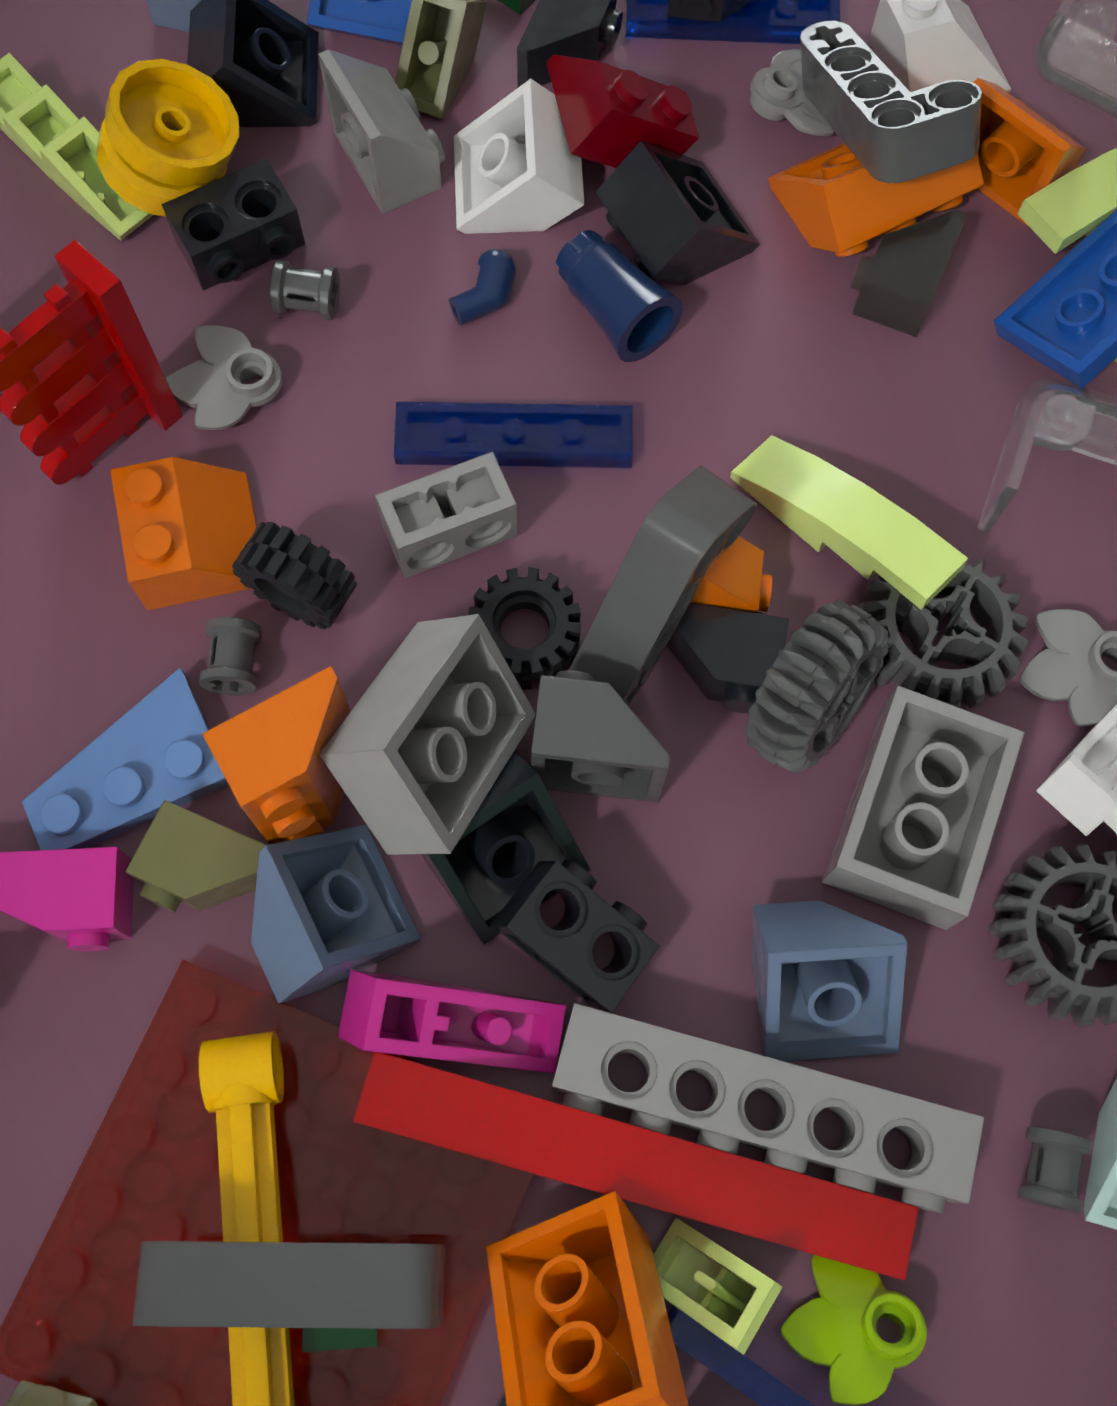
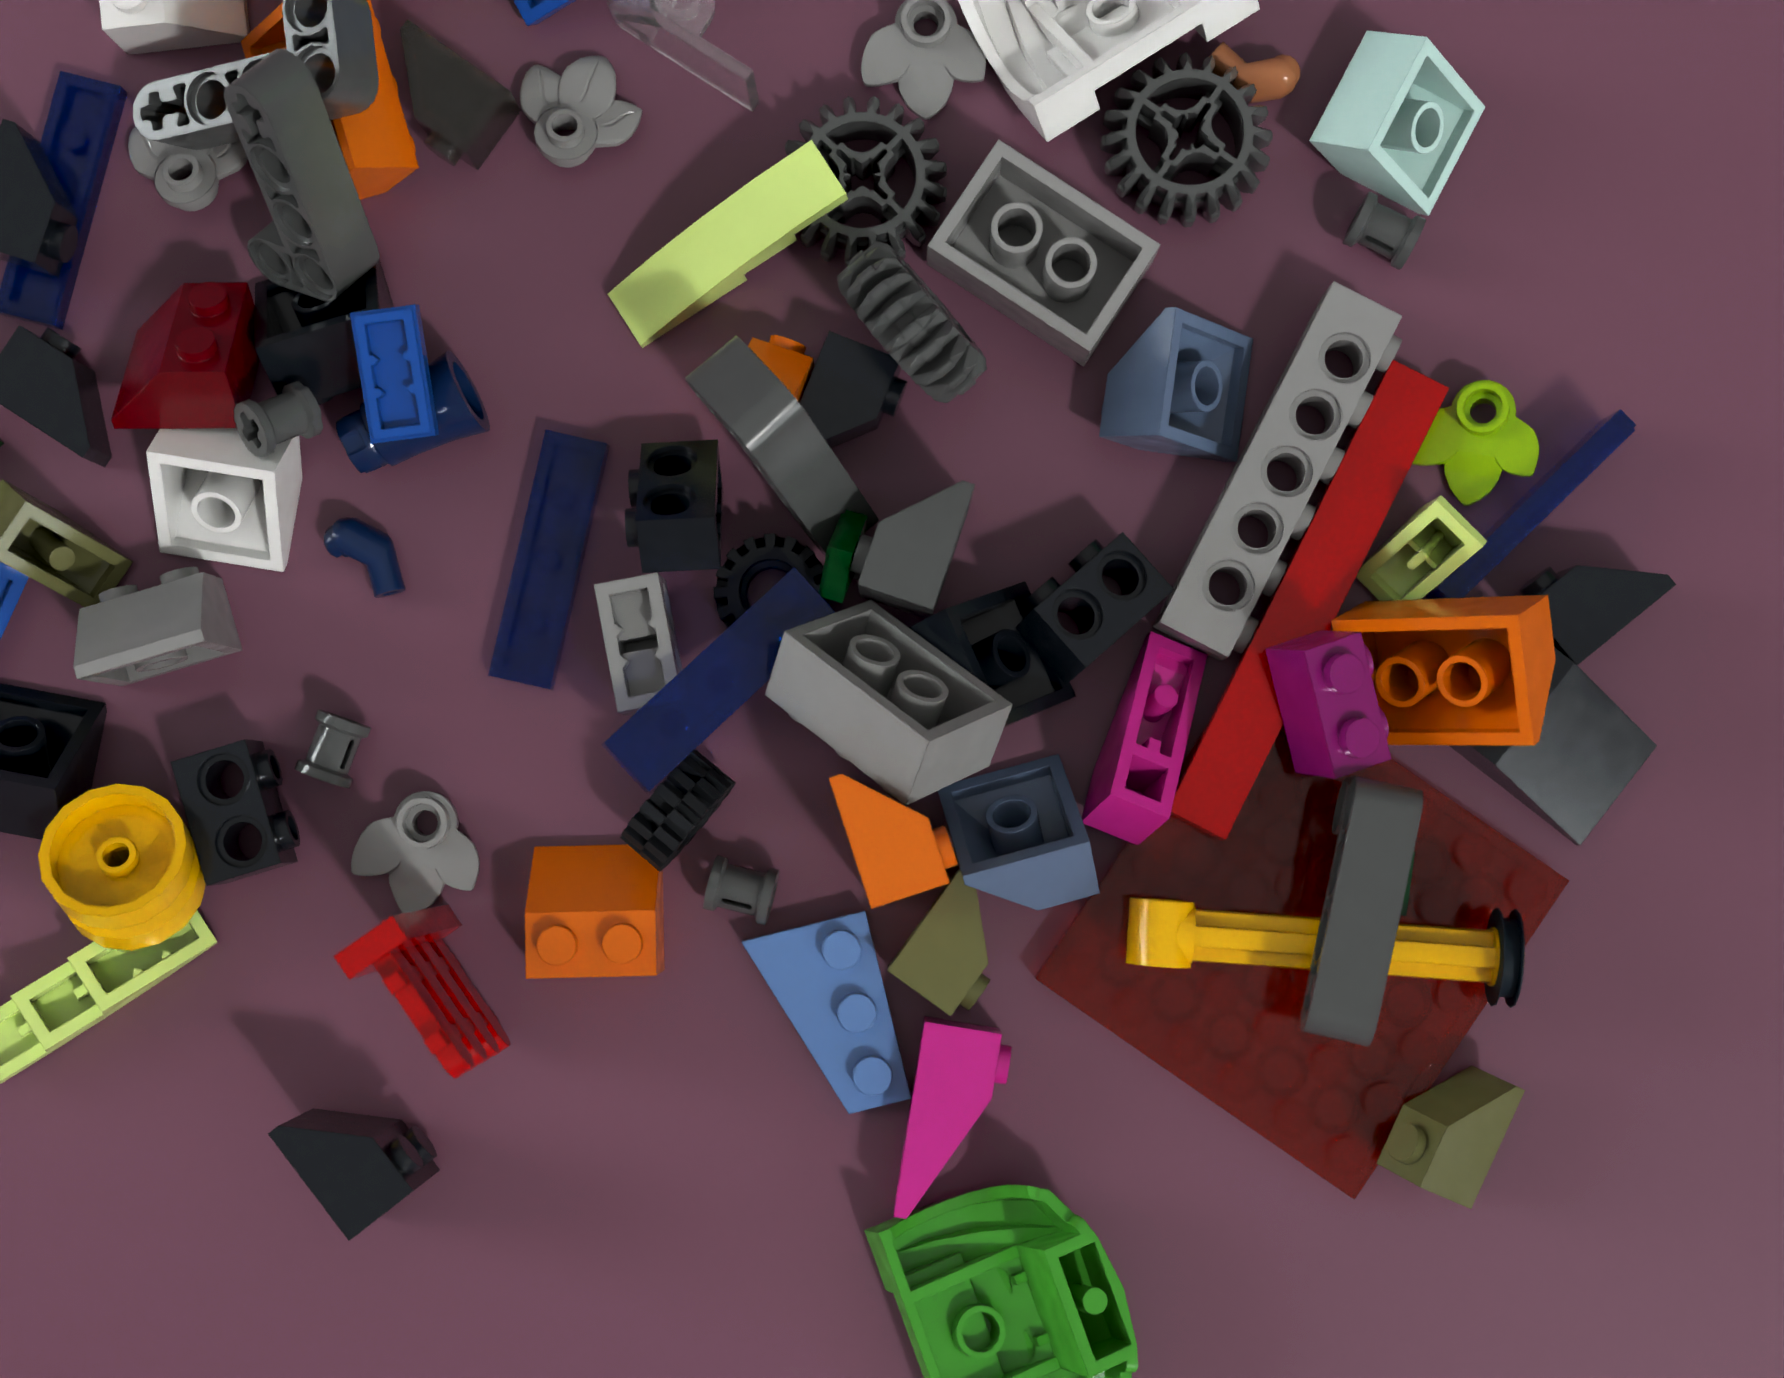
camera: 70 degrees left, 15 degrees up
(416, 568) = (713, 683): none -> clear blue tile
(520, 1206) = (1329, 703): none -> magenta brick
(570, 658) = (840, 554): none -> dark green tile
(580, 515) = (676, 506): none -> black brick
(584, 174) = (278, 419): none -> dark grey bush
(647, 250) = (394, 373): none -> blue plate
(760, 172) = (318, 224): none -> dark grey beam
(930, 377) = (578, 102): none -> light grey plate

